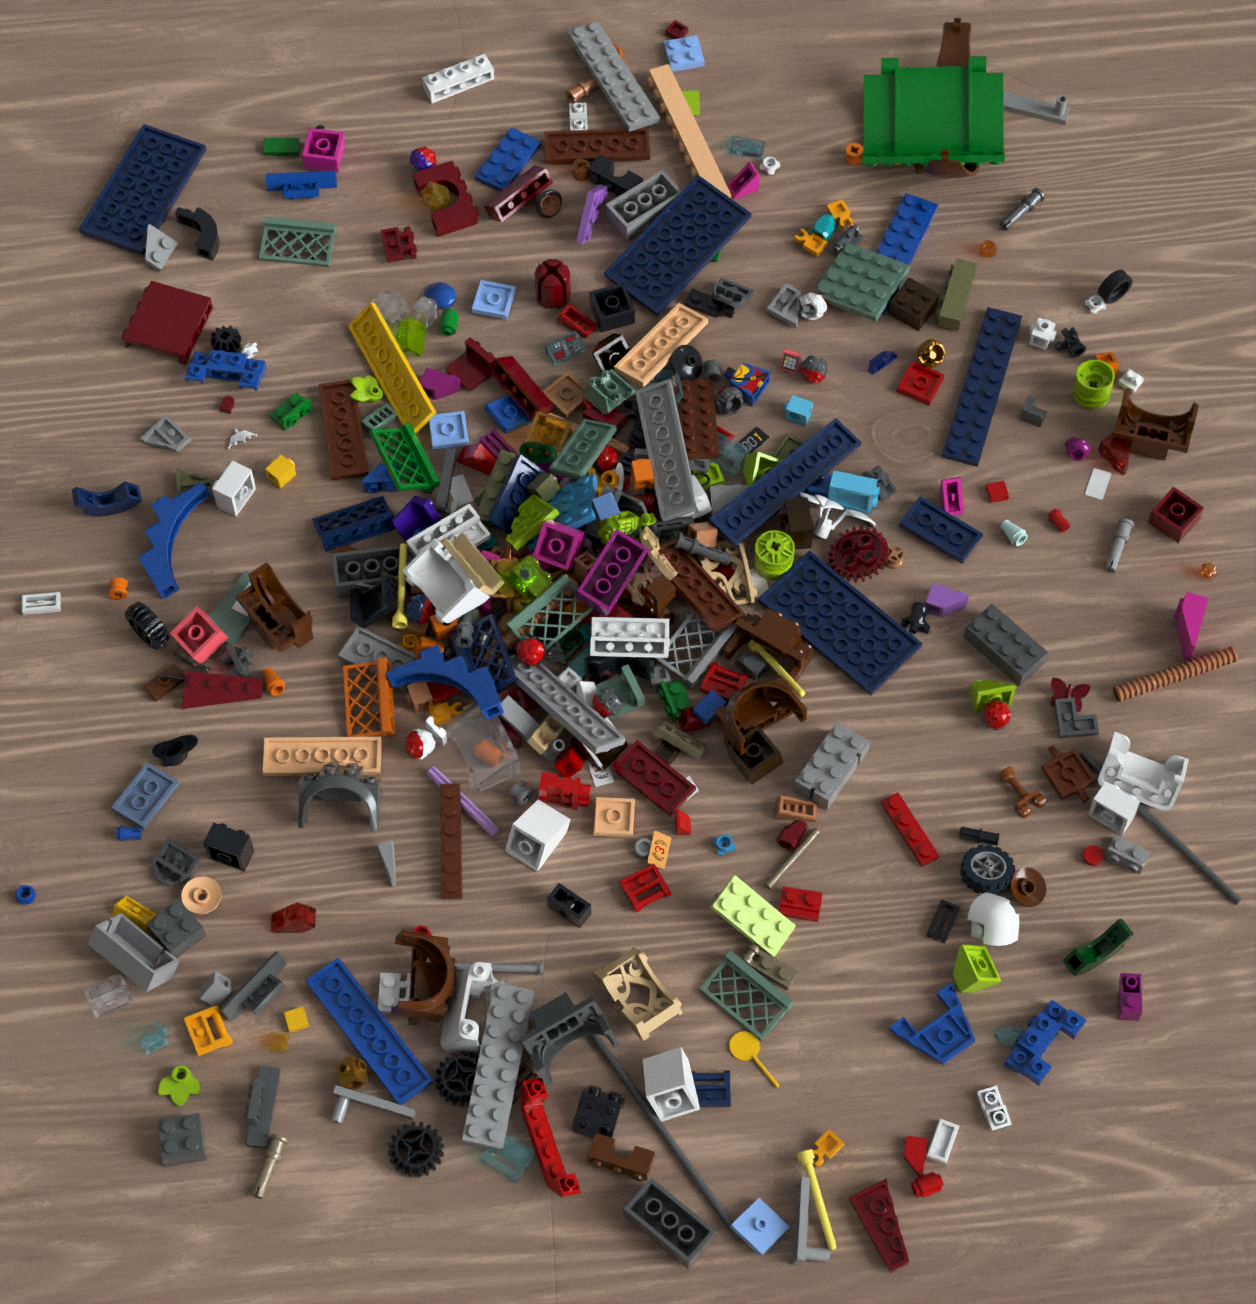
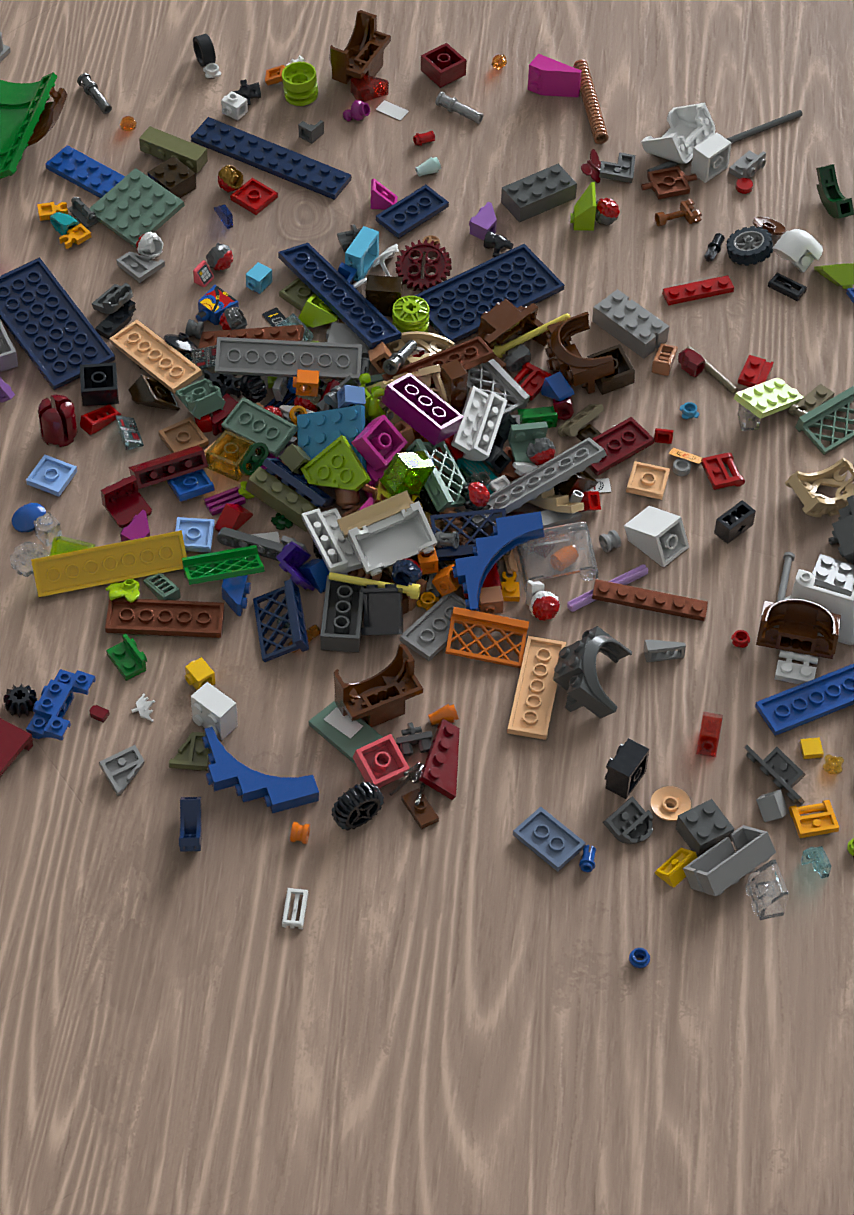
camera: 80 degrees left, 10 degrees down
(175, 750) = (505, 801): black piece -> none
(250, 350) = (40, 681): white plate -> none
(448, 322) = (67, 513): green brick -> none
(563, 791) = (619, 506): red hips -> none
(997, 491) = (382, 170): red tile -> none

